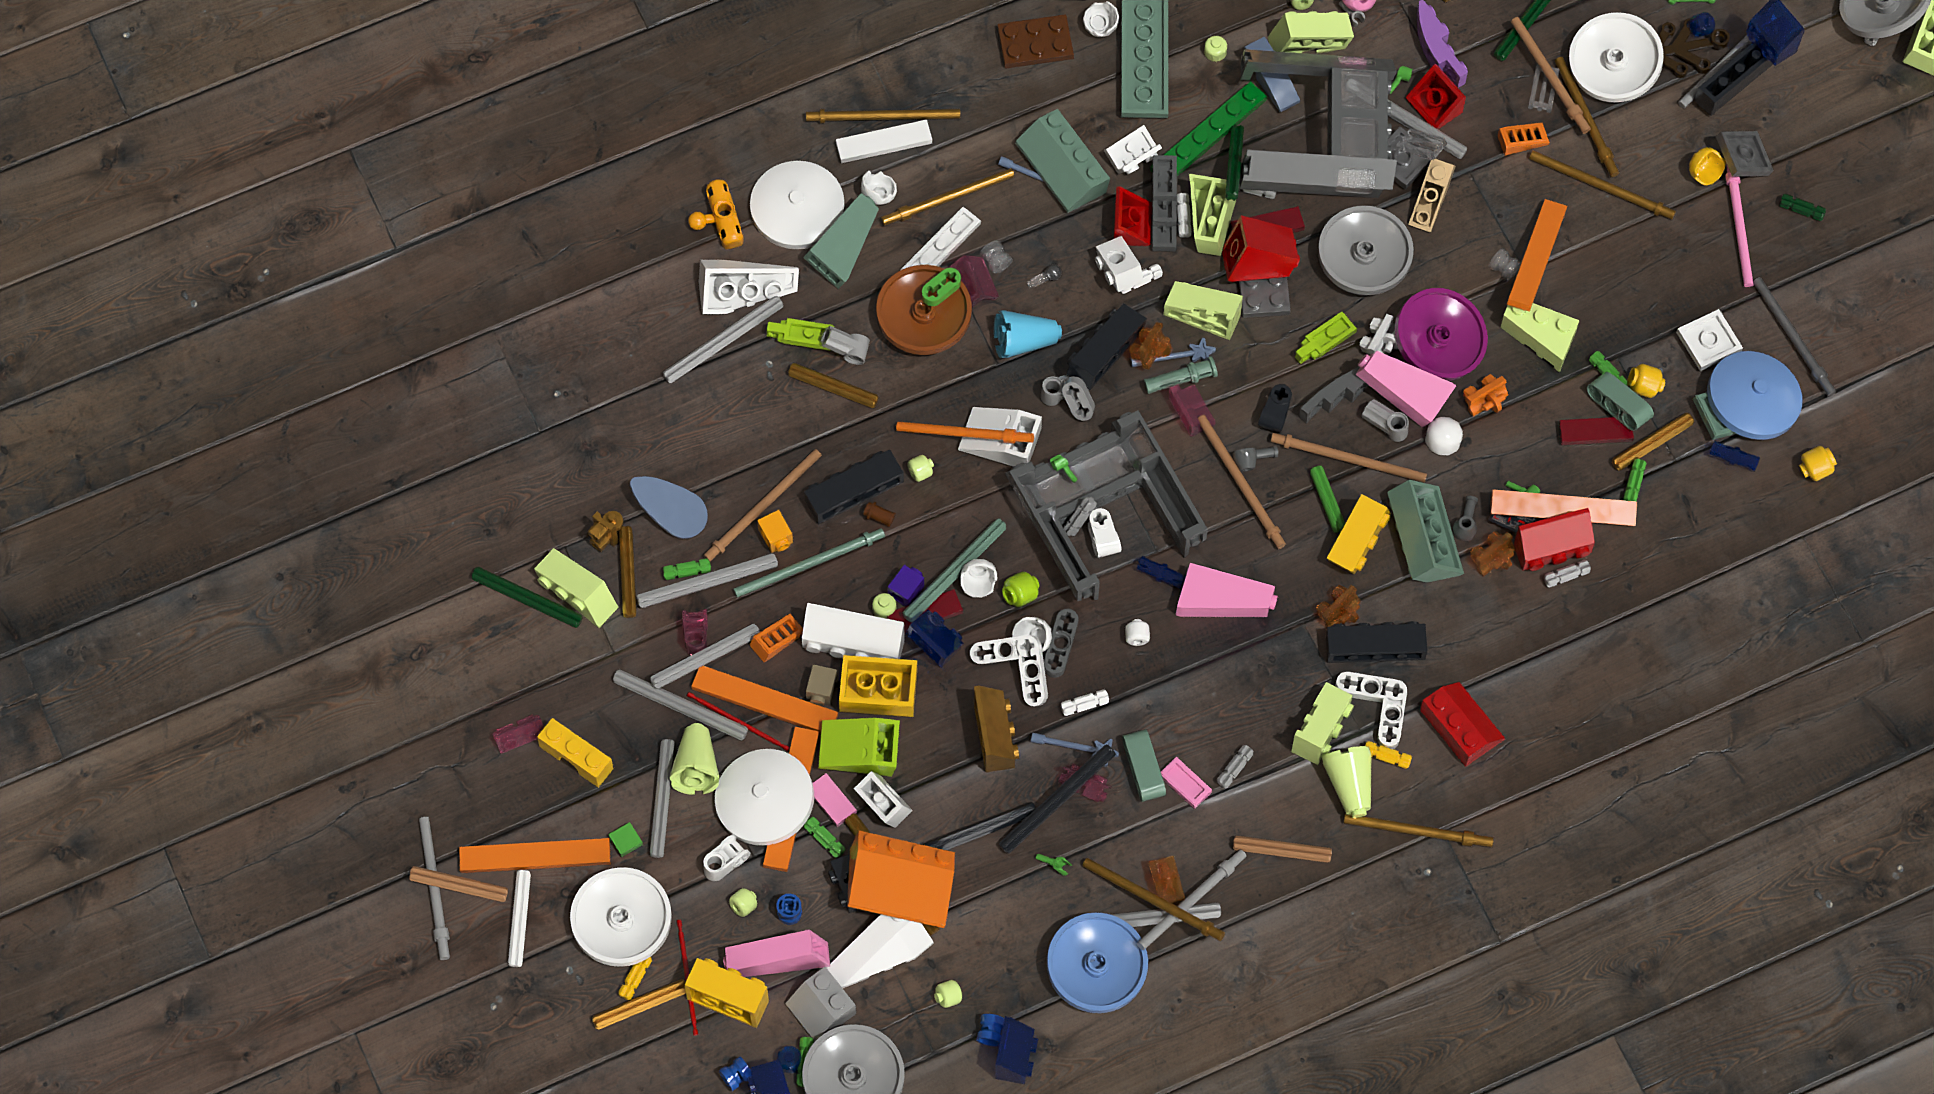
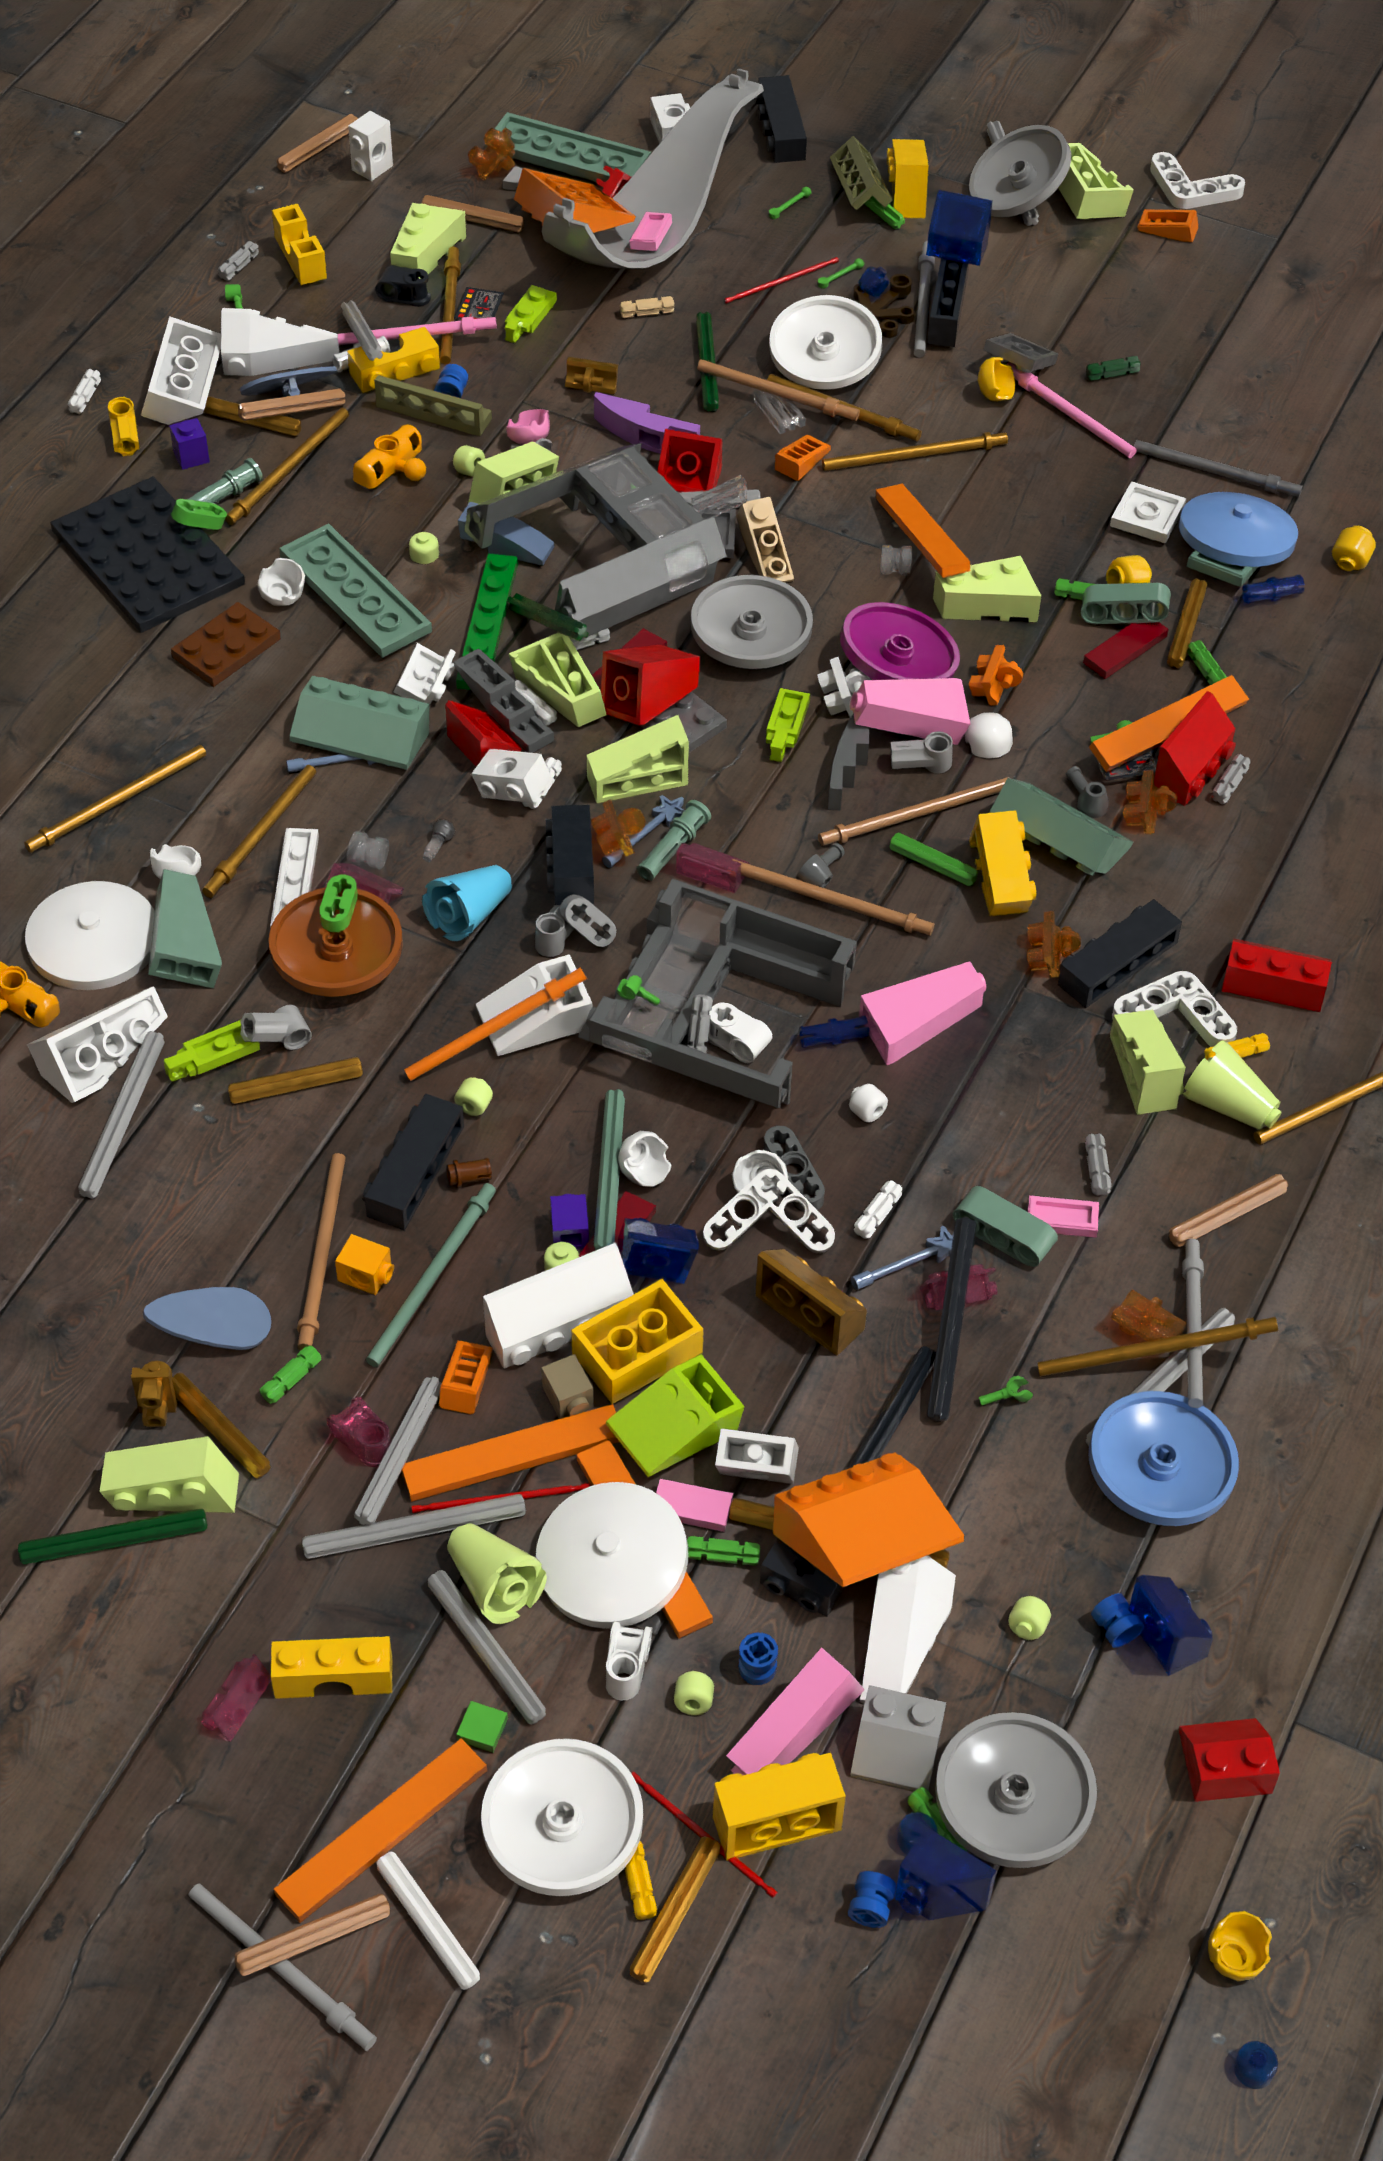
camera: 40 degrees left, 15 degrees down
(707, 580) = (325, 1372): light grey axle -> none
(883, 141) = (139, 821): white tile -> none
(1020, 589) = (701, 1141): lime head -> none
(1275, 411) = (802, 809): black piece -> none

